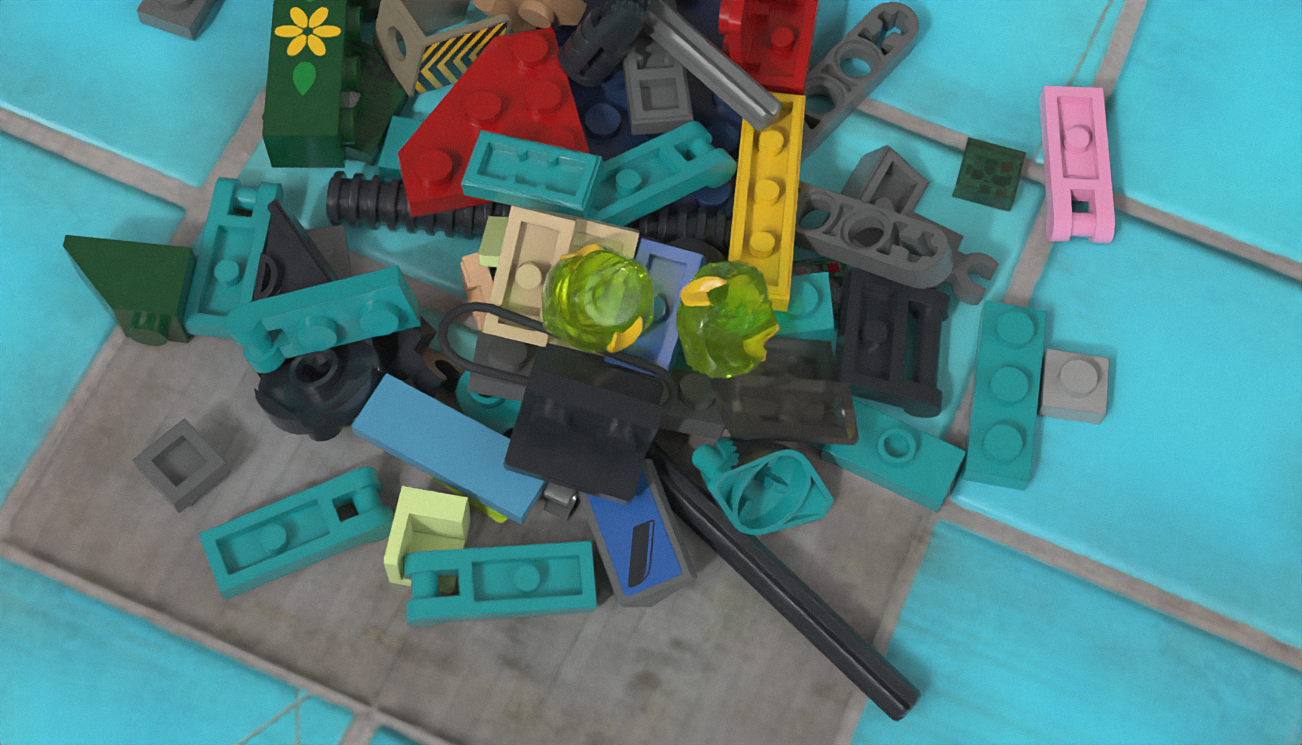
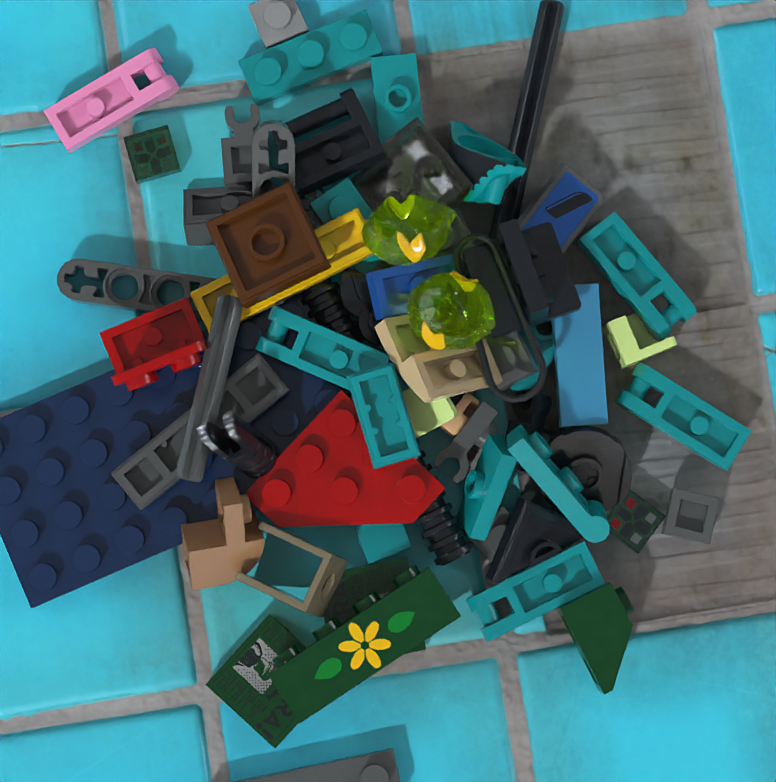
camera: 125 degrees left, 20 degrees up
(227, 405) = (634, 521): none -> tile
(377, 251) = (486, 487): none -> teal plate
(451, 283) = (472, 433): none -> dark grey plate
(806, 179) = (267, 245): none -> reddish brown plate

